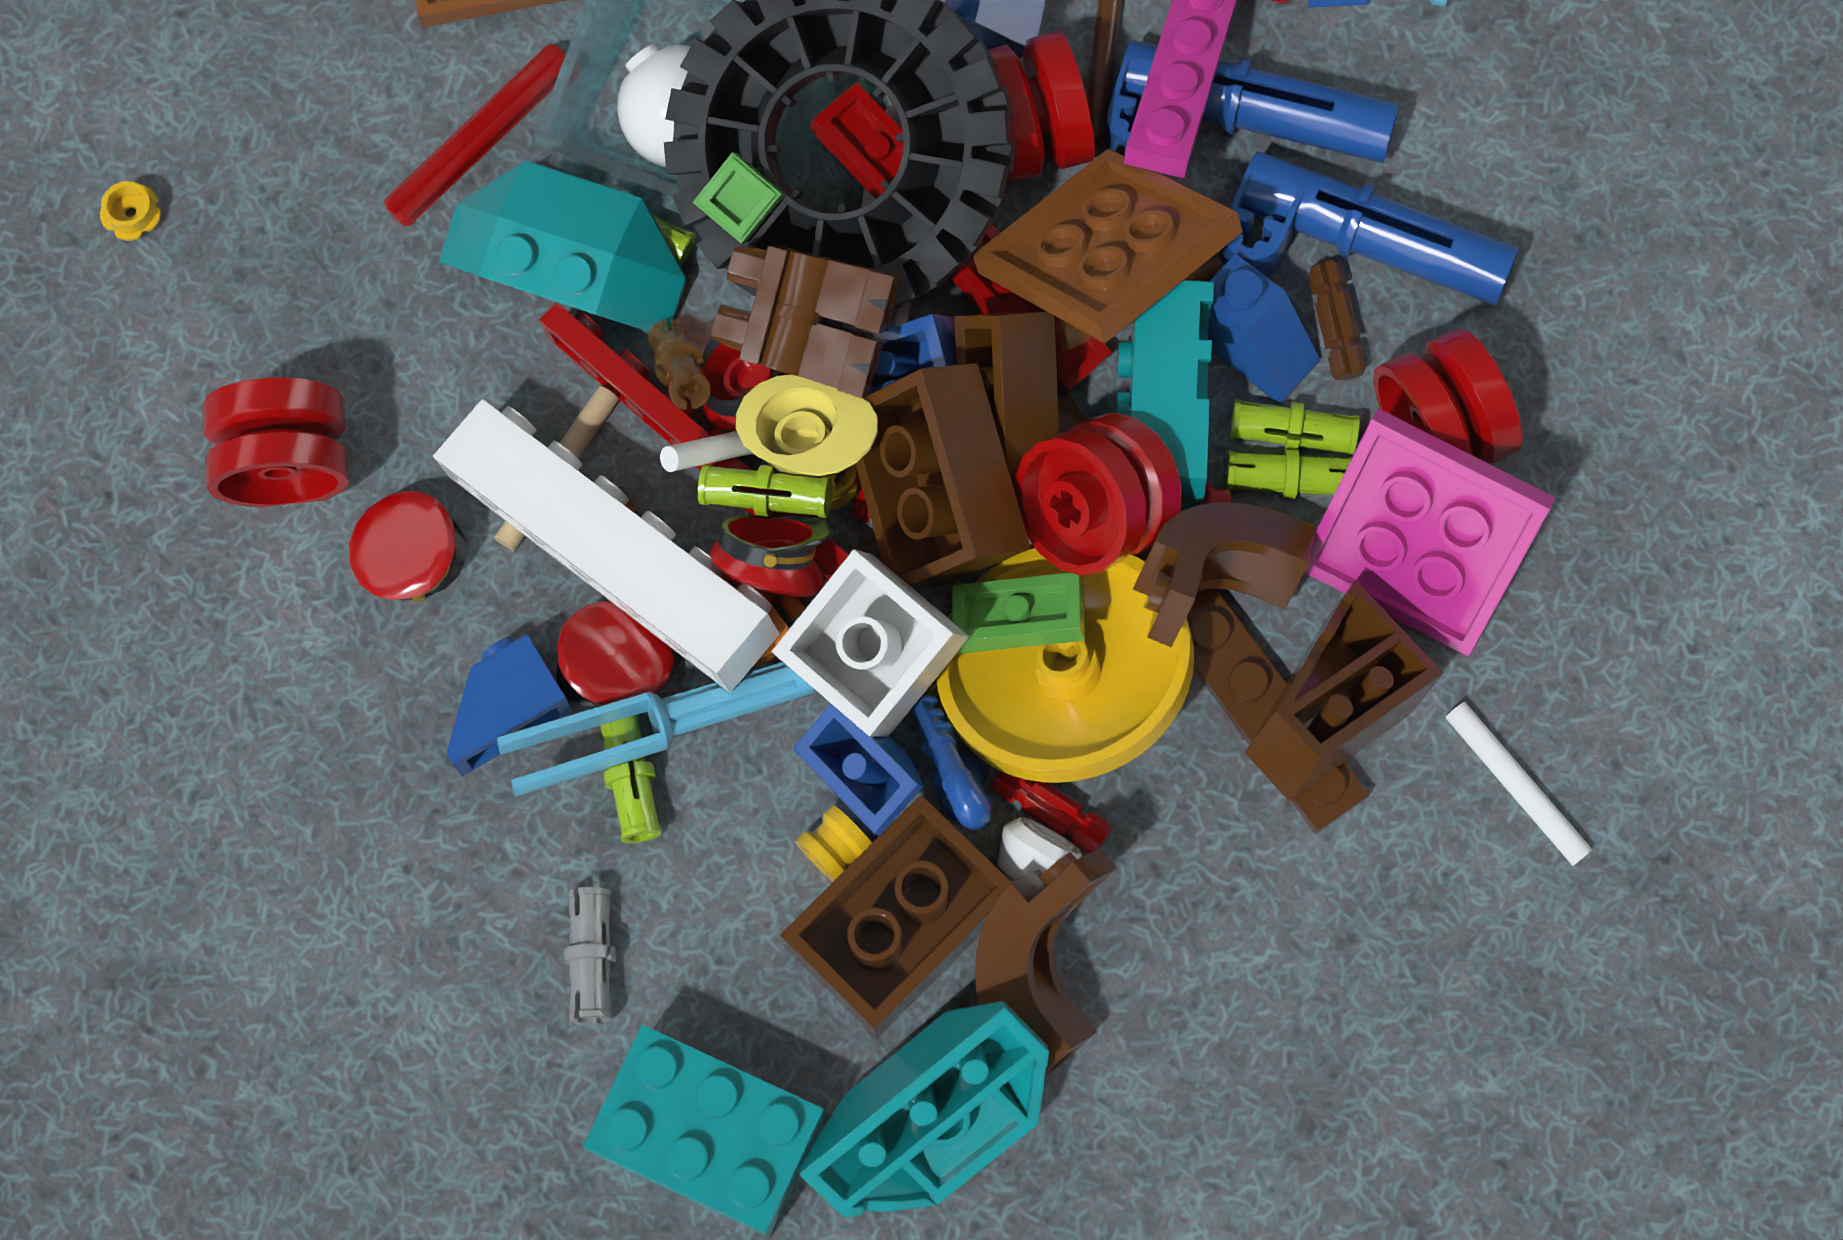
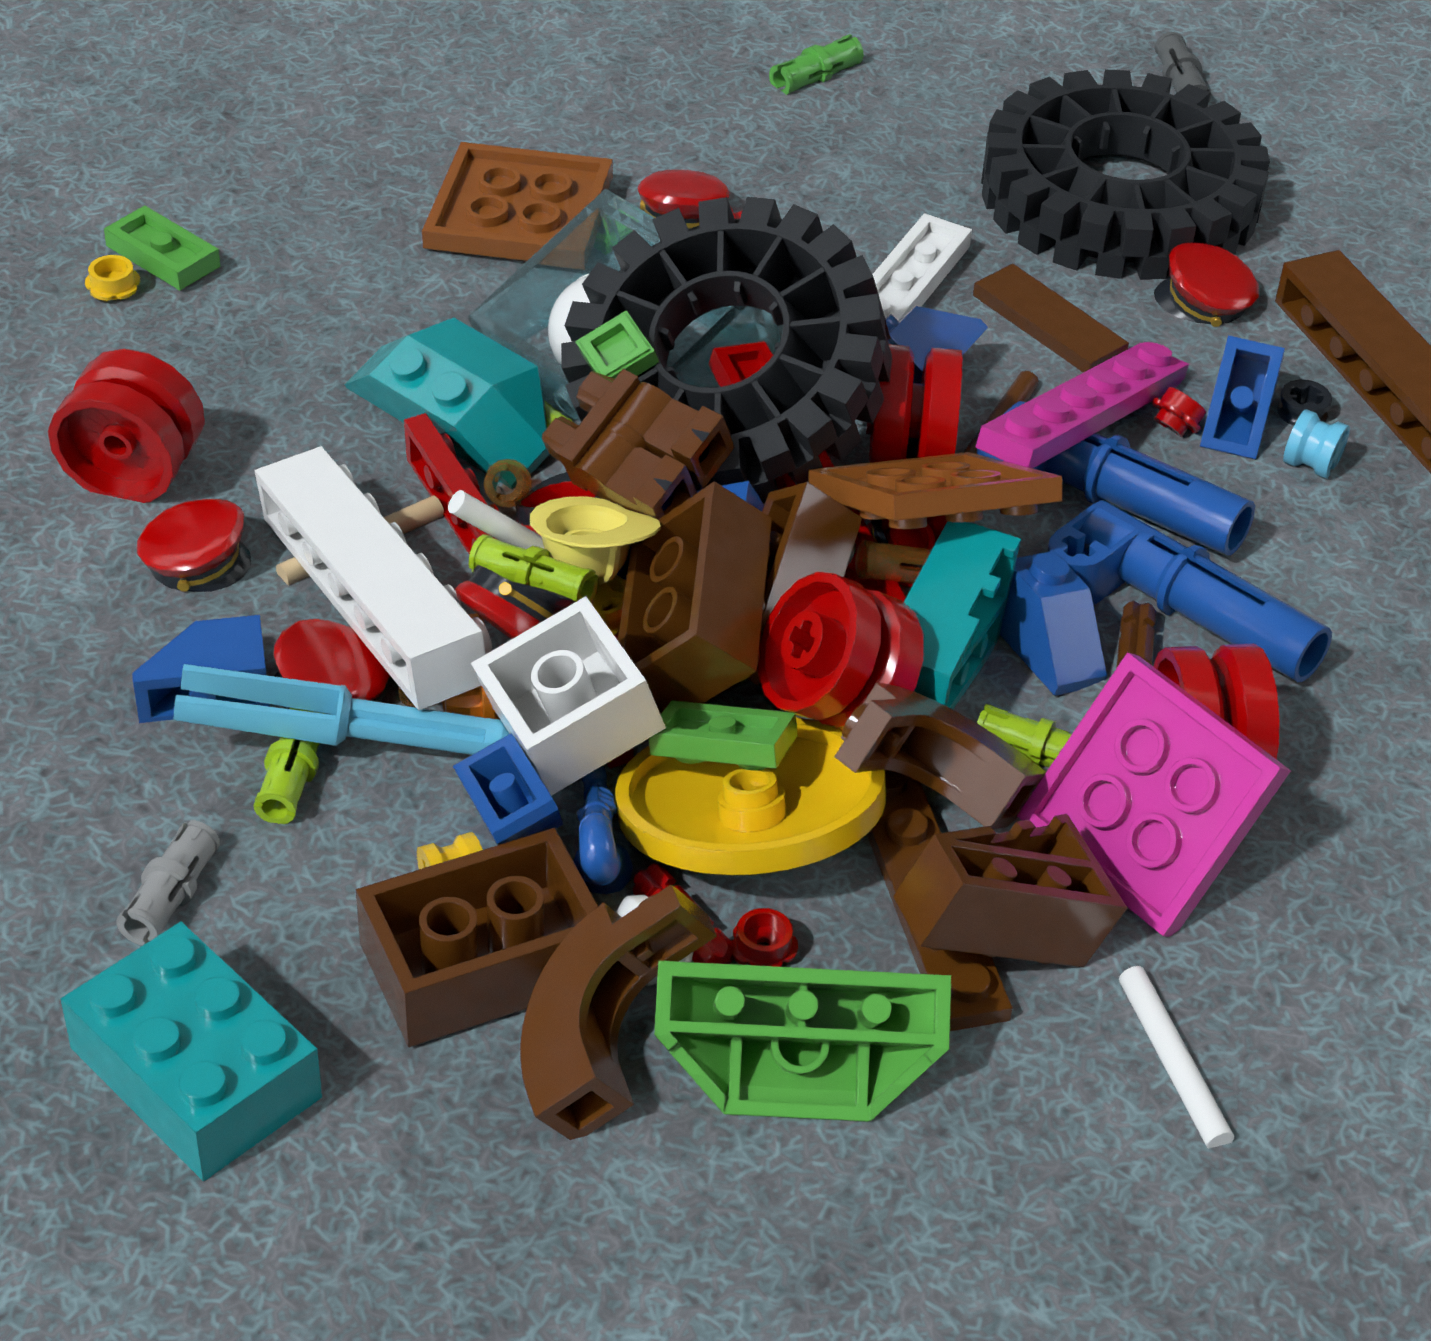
camera: 15 degrees right, 30 degrees down
(156, 143) = (162, 247): none -> bright green plate
(475, 137) = (389, 326): red axle -> none
(931, 1114) = (427, 1103): teal wedge -> none
(1132, 789) = (764, 926): none -> red plate
(1210, 904) = (801, 1035): none -> bright green wedge
(1294, 426) = (1020, 694): lime pin -> none

